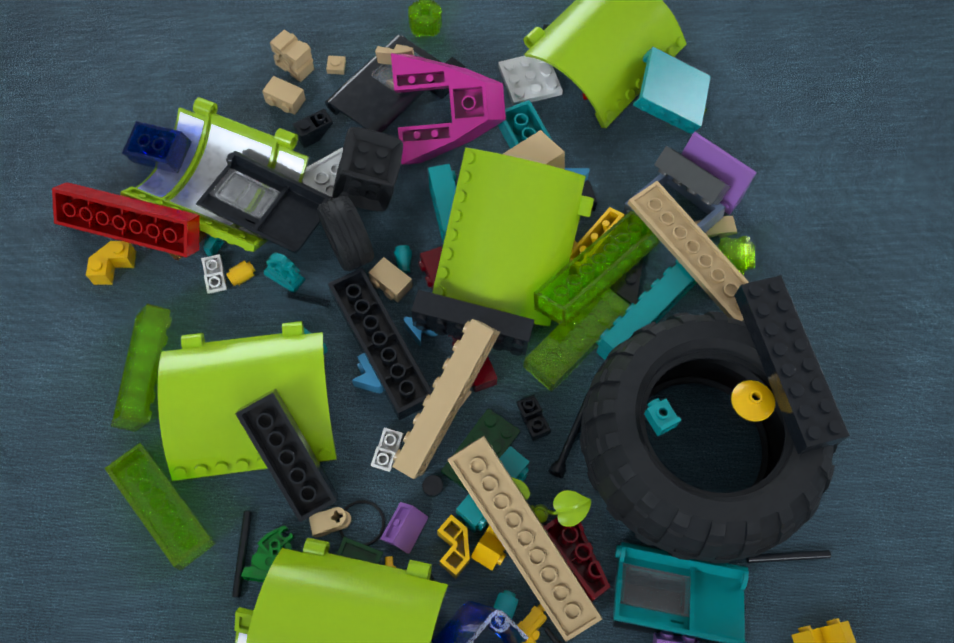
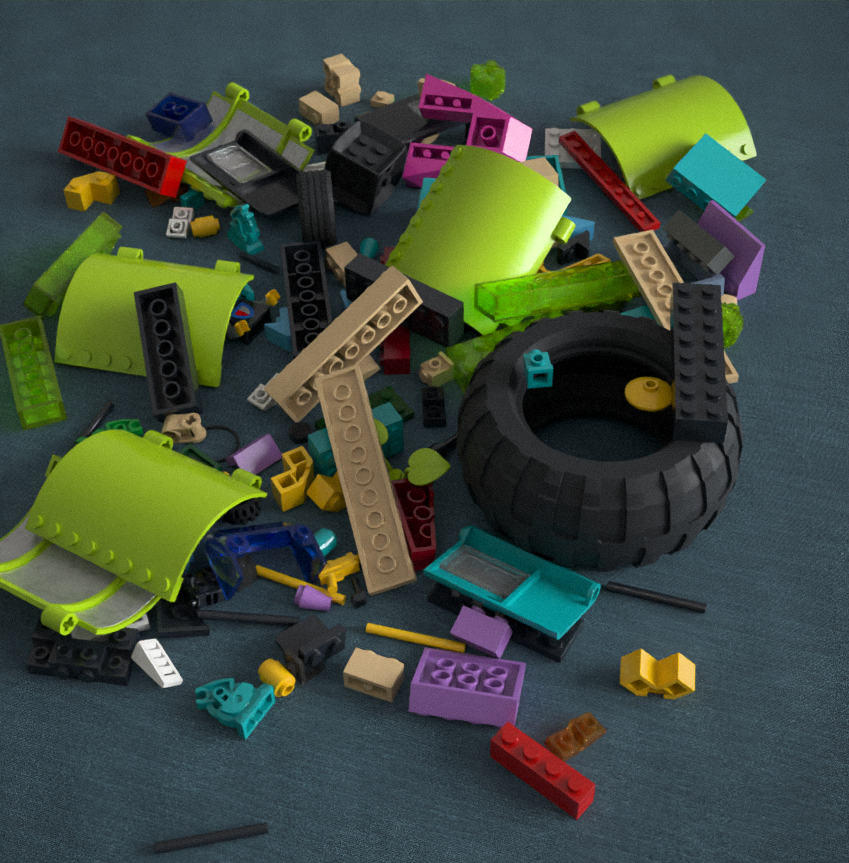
camera: 25 degrees right, 20 degrees down
(336, 371) = (250, 316): none -> torso
(528, 375) = (437, 370): none -> tan brick
(580, 114) = (609, 182): none -> red plate

